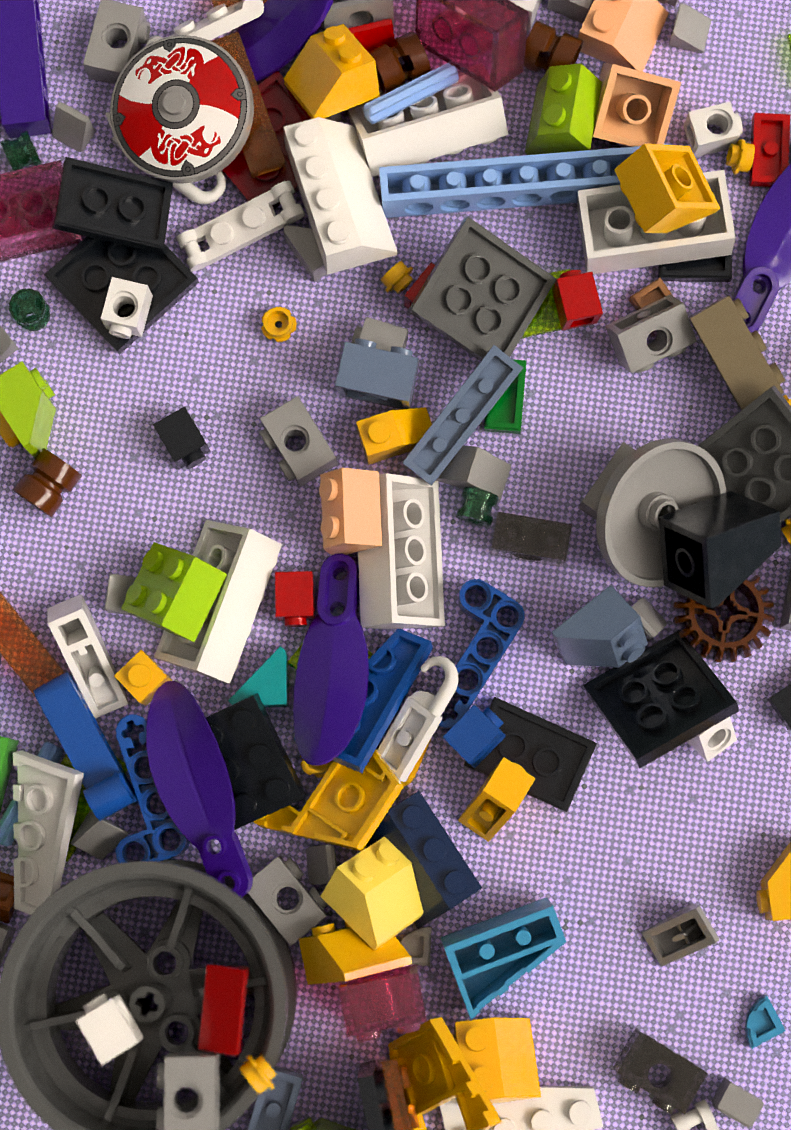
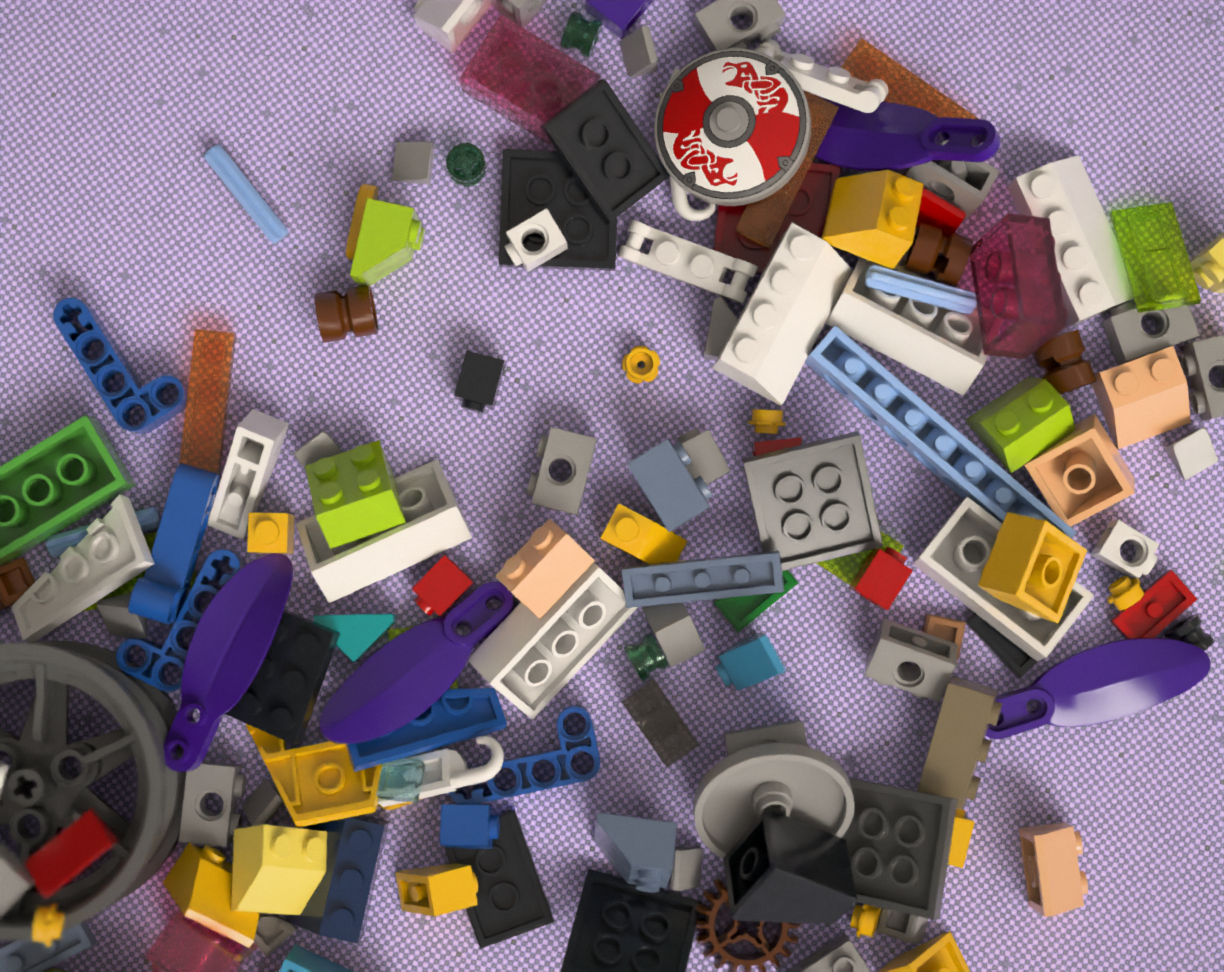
camera: 40 degrees right, 5 degrees up
(399, 748) = (401, 780): none -> clear light blue tile
(549, 435) = (749, 662): none -> dark azure slope

